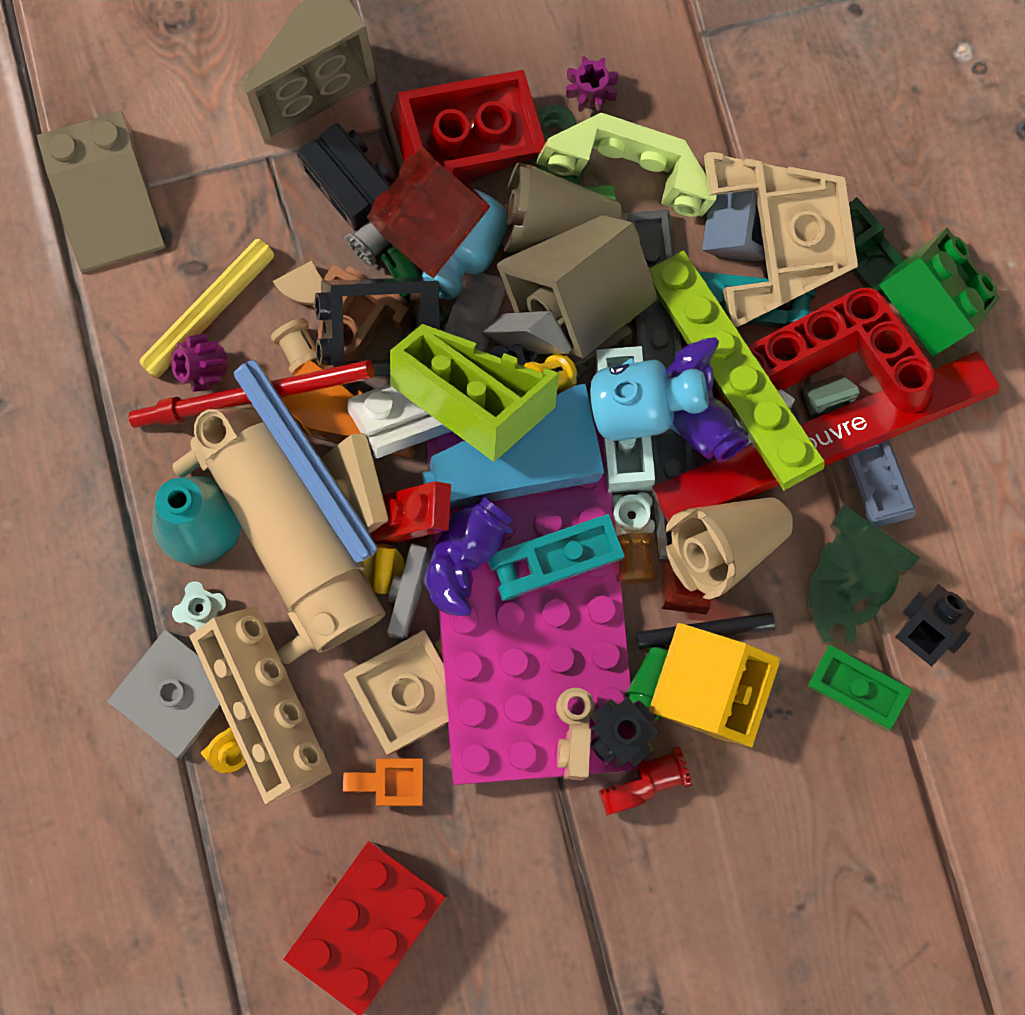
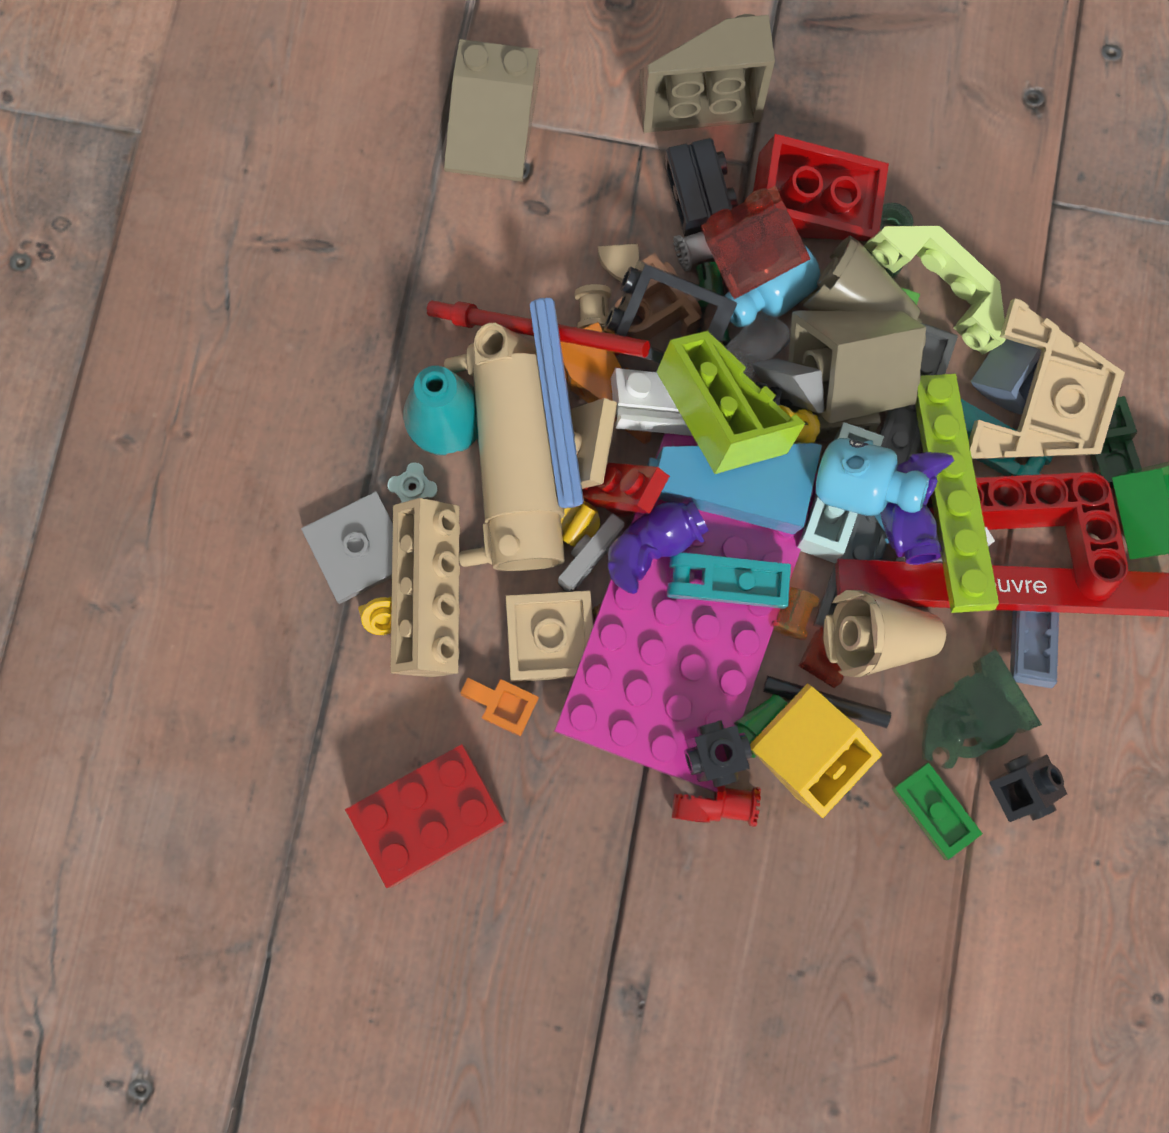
camera: 20 degrees right, 0 degrees up
(199, 362) = (506, 285): magenta gear -> none
(208, 306) = (533, 244): light yellow axle -> none
(575, 750) = (670, 750): tan plate -> none
(600, 78) = (940, 202): magenta gear -> none
(640, 505) = (819, 569): light aqua plate -> none
(829, 395) = (1024, 552): sand green slope -> none

